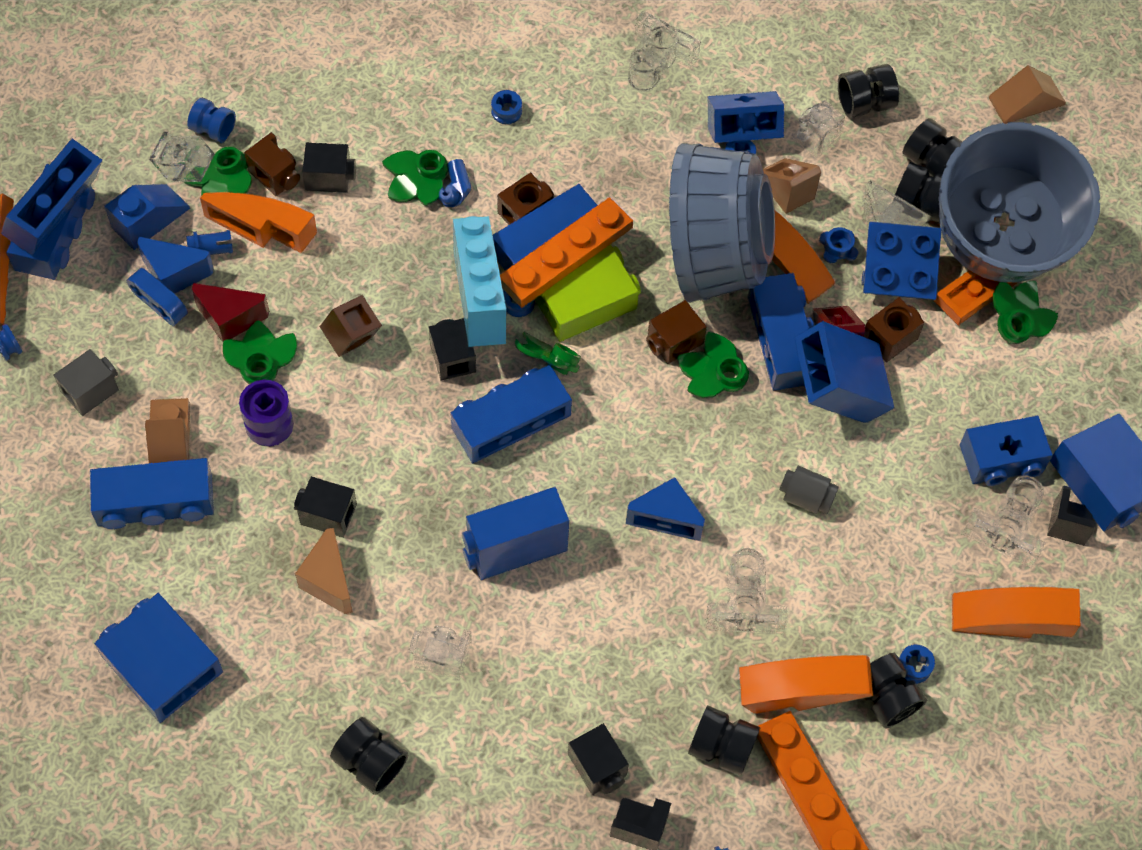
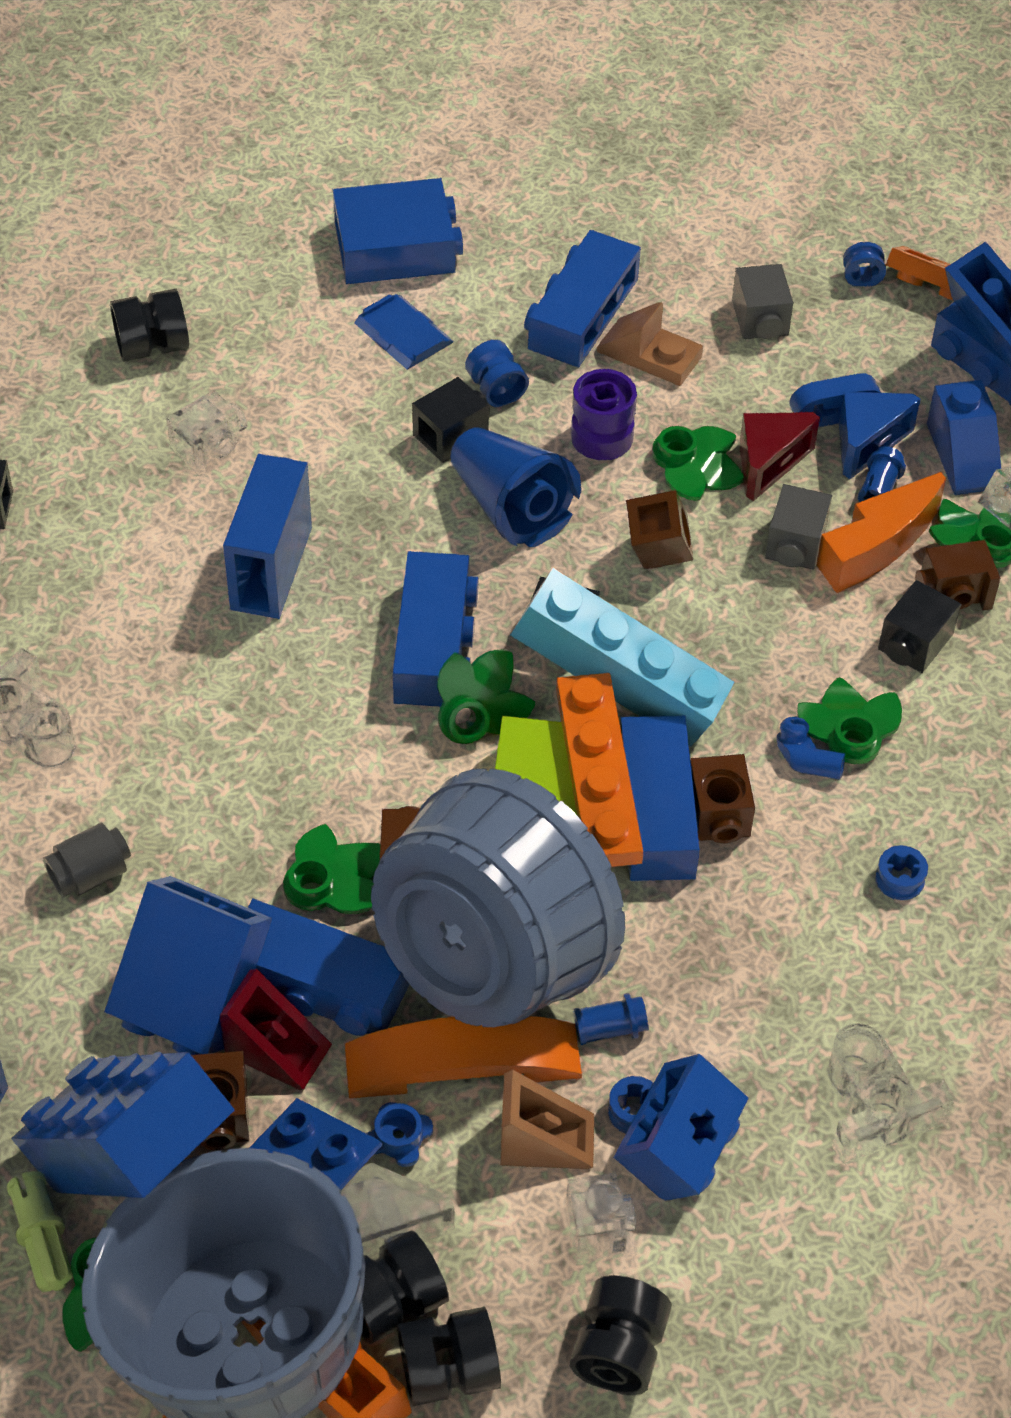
camera: 125 degrees right, 10 degrees down
(248, 602) = (402, 330): none -> blue piece
(263, 505) = (496, 372): none -> blue wheel
(289, 263) = (798, 526): none -> dark grey brick
(324, 575) = (369, 385): medium nougat slope -> none
(364, 432) = (517, 484): none -> blue cone
(666, 511) = (180, 706): blue slope -> none
(970, 318) = (122, 1123): none -> blue brick
(1022, 364) = (40, 1231): none -> yellowish green axle

